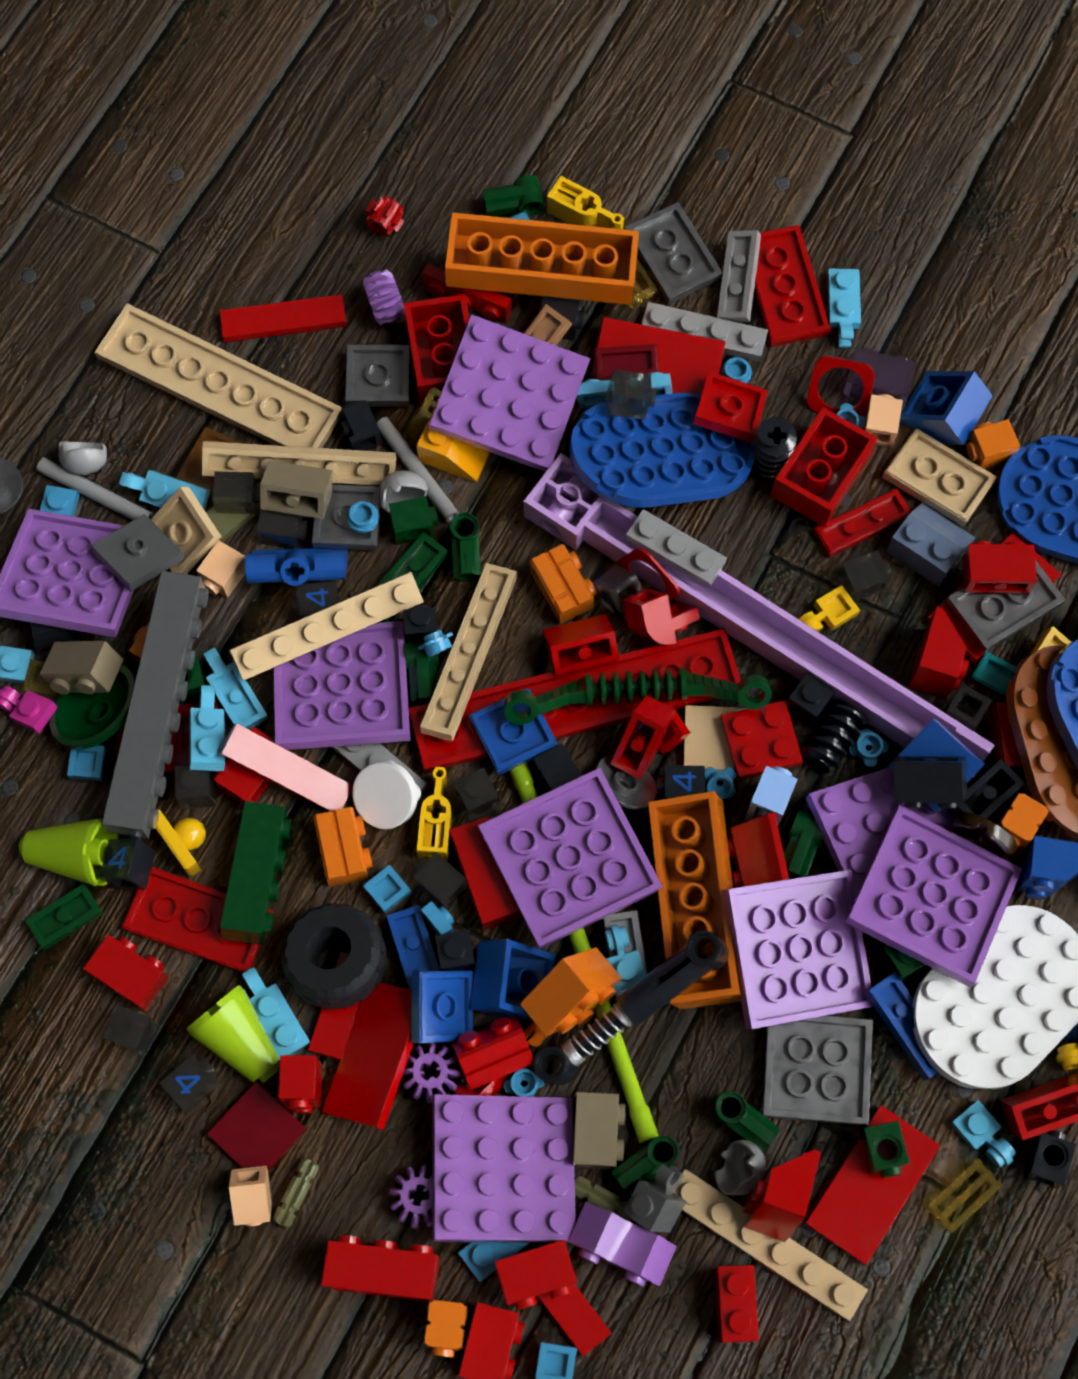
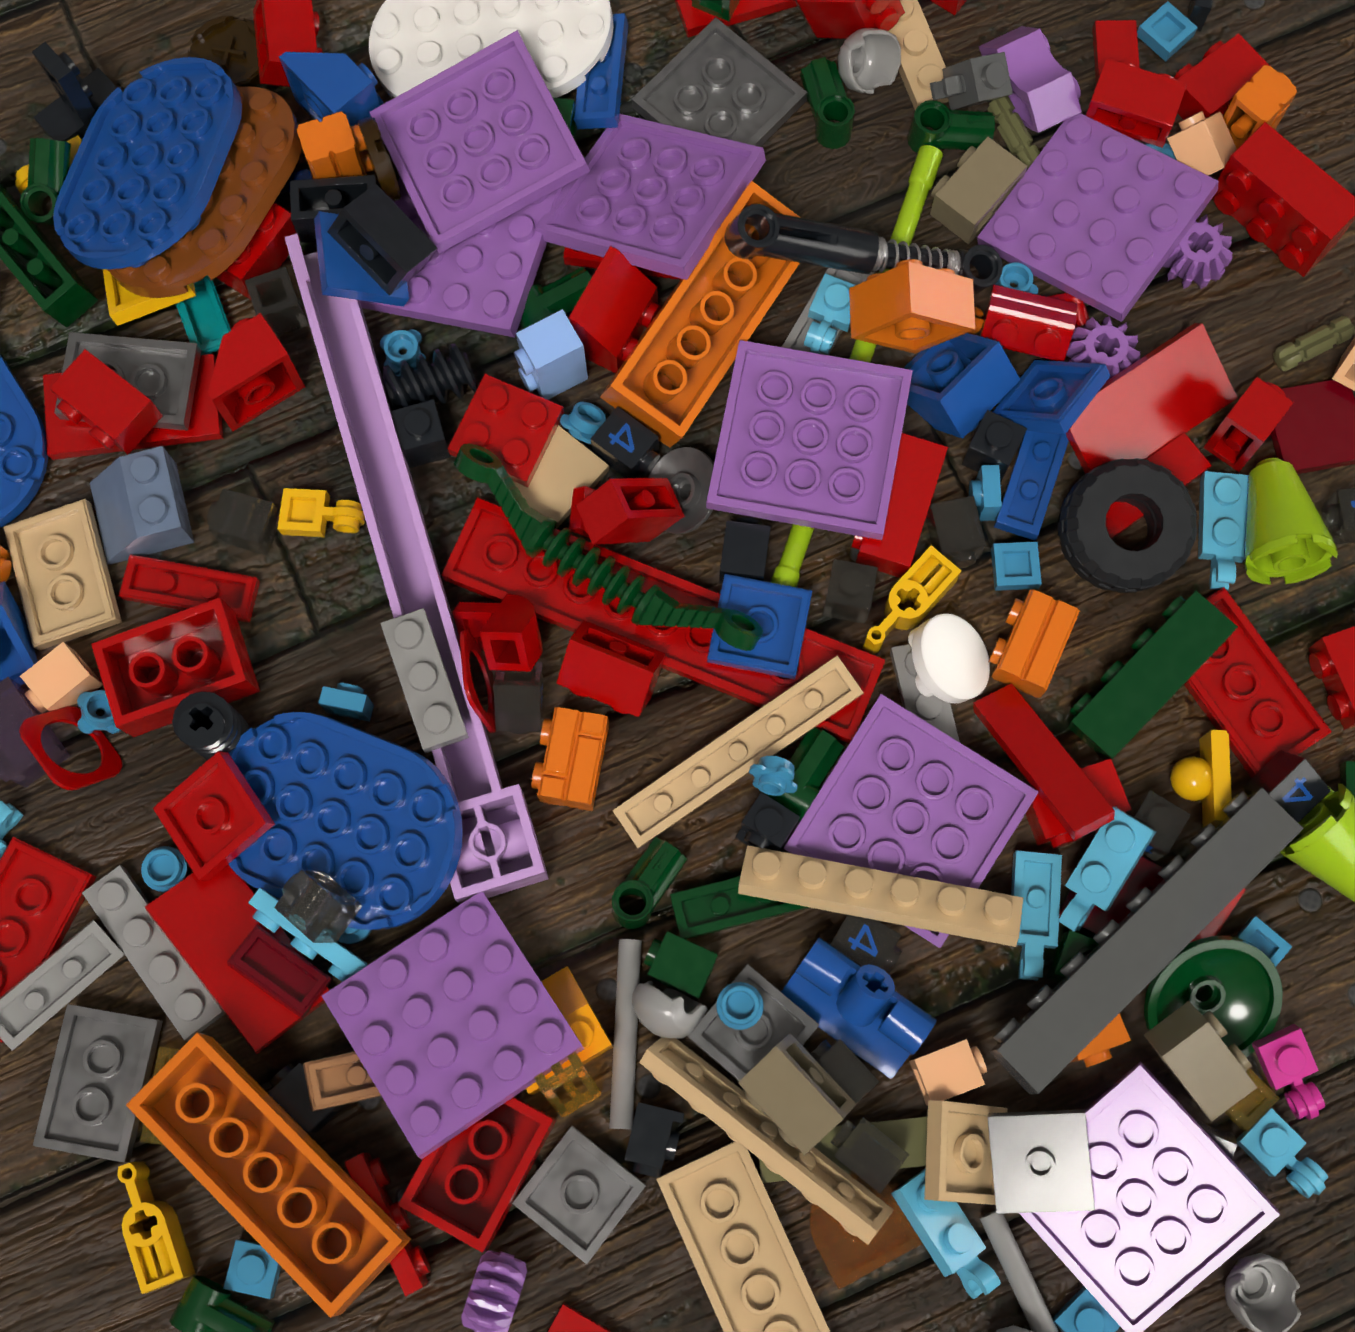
camera: 140 degrees left, 5 degrees up
(465, 1274) = (1203, 143): none -> light nougat brick
(715, 522) = (346, 701): none -> dark azure plate

